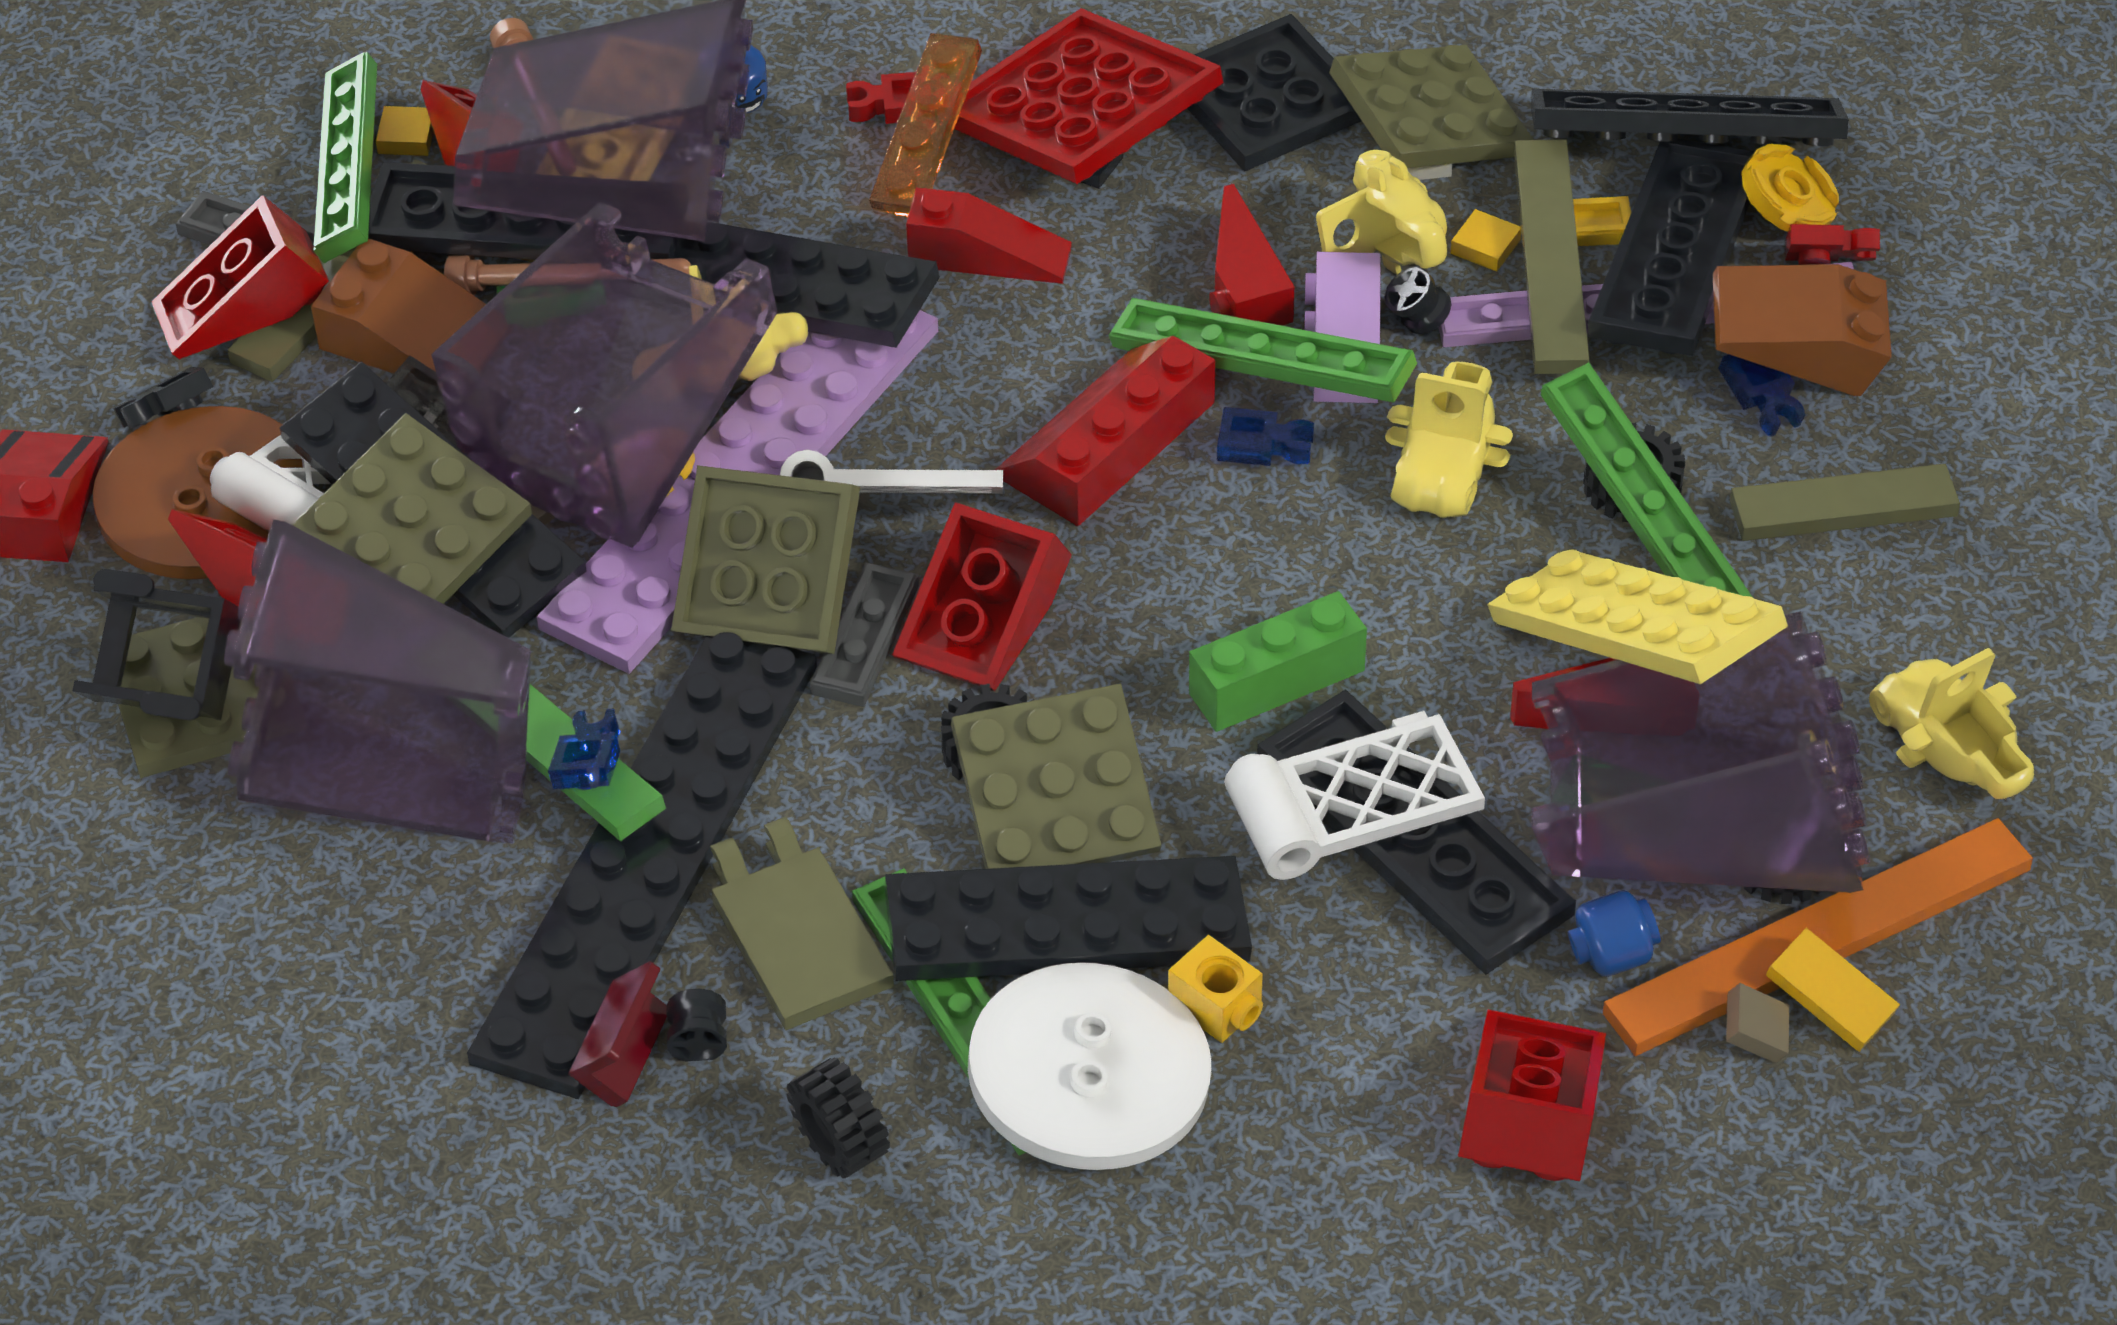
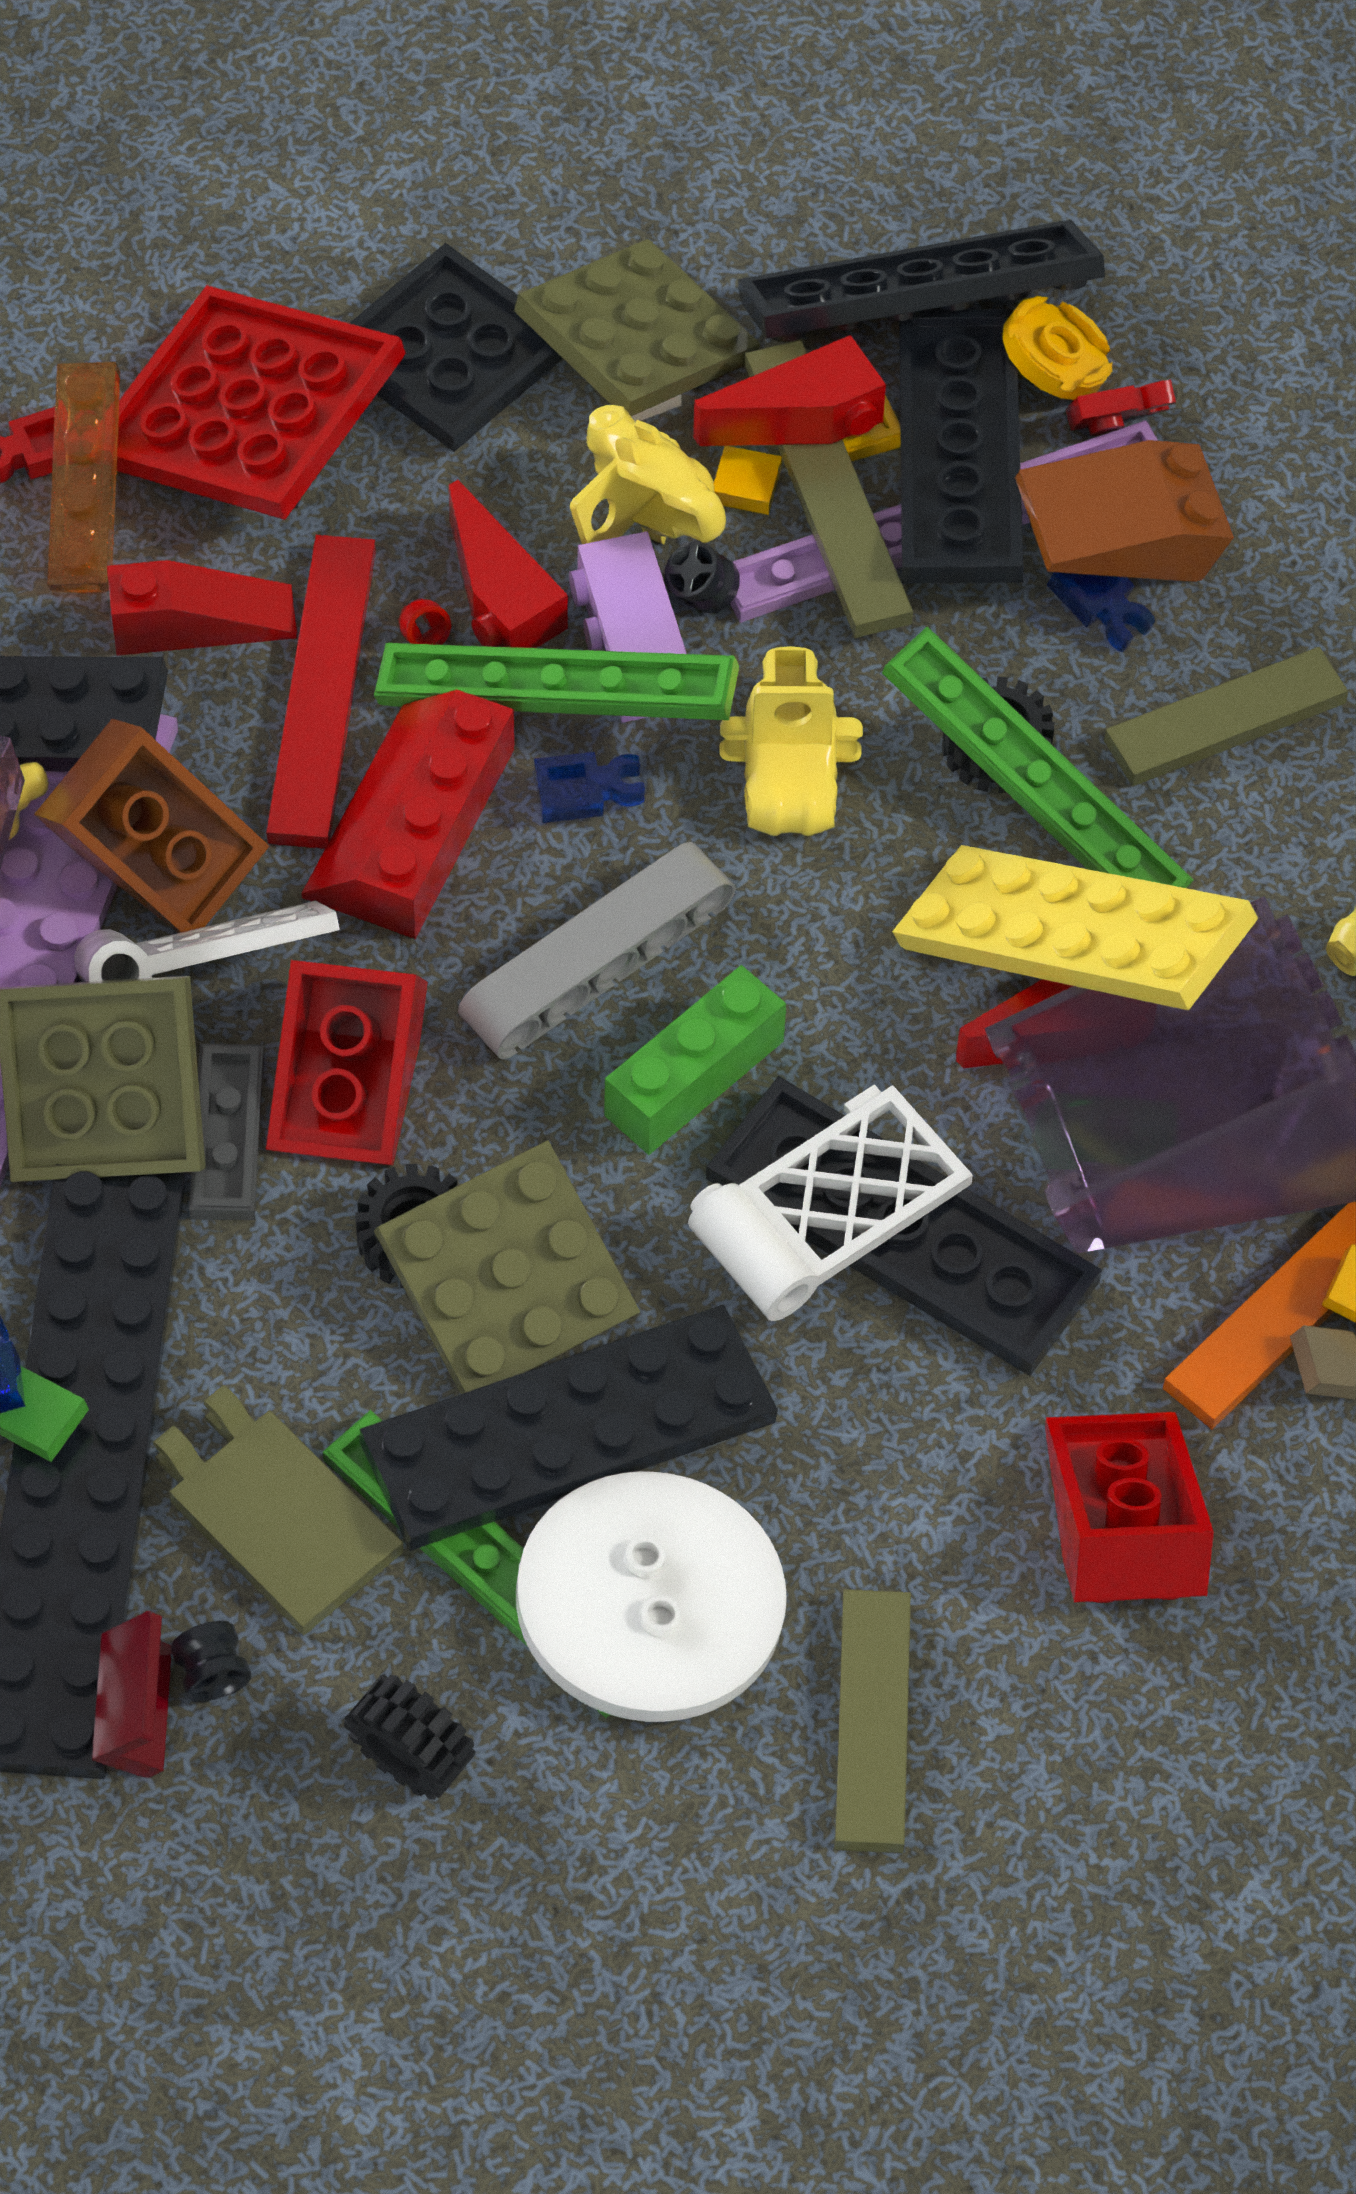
camera: 20 degrees left, 10 degrees up
(881, 385) = (152, 827): none -> dark orange slope
(1066, 326) = (321, 692): none -> red tile
(1180, 284) = (433, 615): none -> red hinge
(1217, 988) = (753, 1447): yellow brick -> none
(1224, 561) = (594, 948): none -> light grey beam
(1248, 1212) = (873, 1721): none -> olive tile
(1540, 179) = (797, 402): none -> red slope
(1614, 933) = (1153, 1297): blue head -> none

